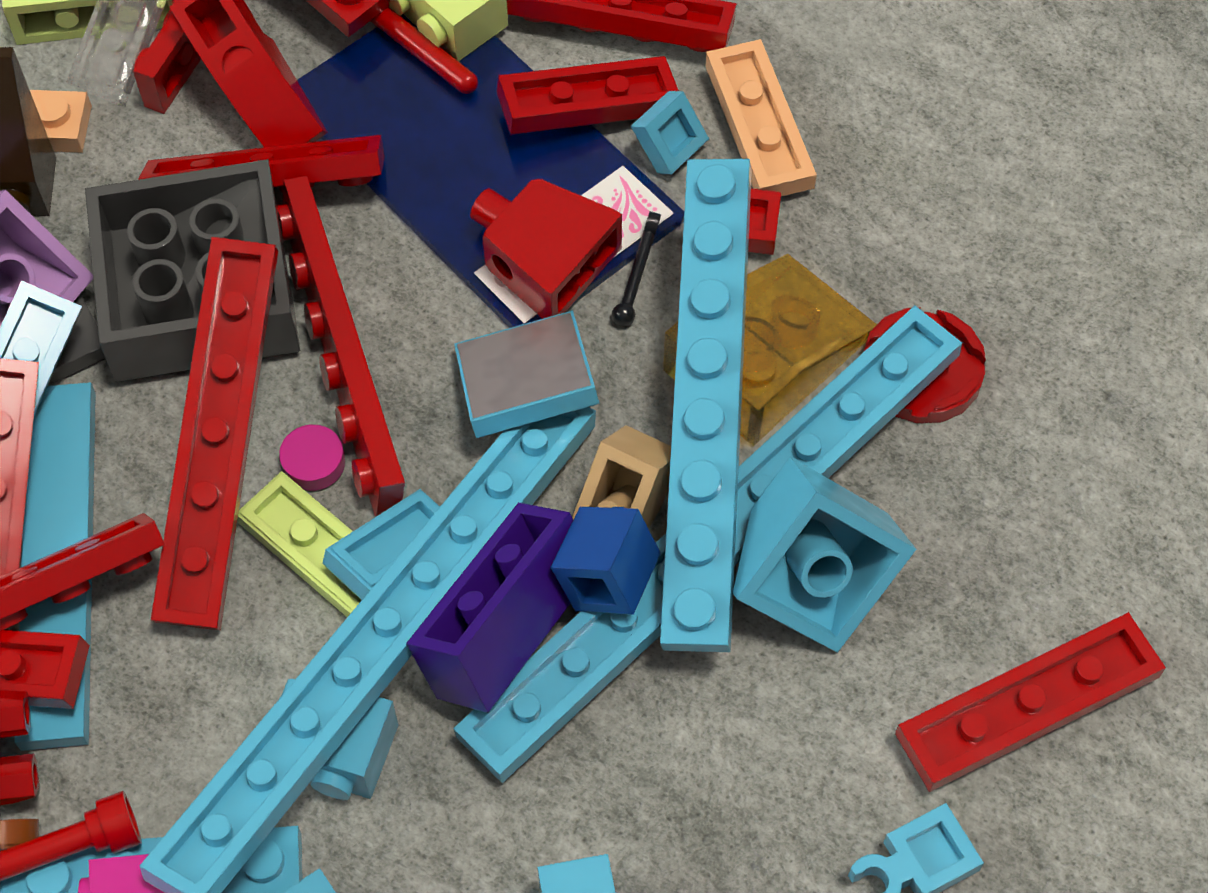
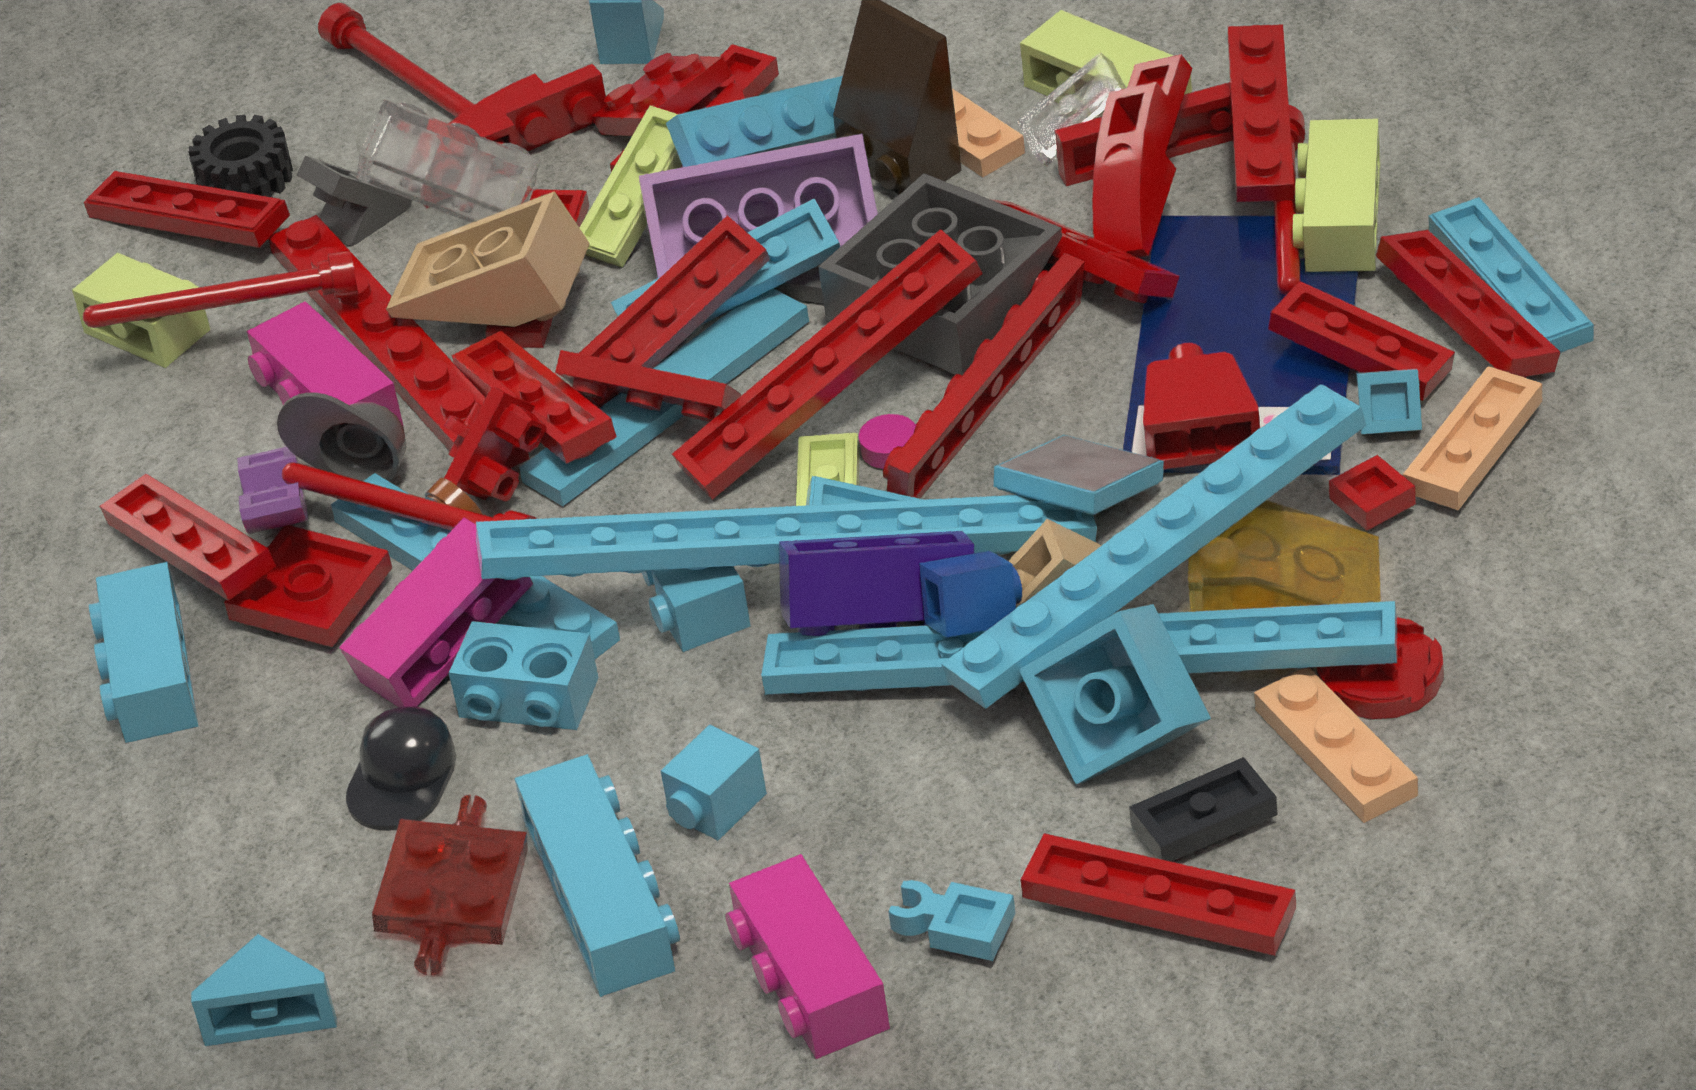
camera: 55 degrees right, 20 degrees down
(971, 598) = (1203, 810): none -> black plate
(977, 457) = (1336, 744): none -> light nougat plate

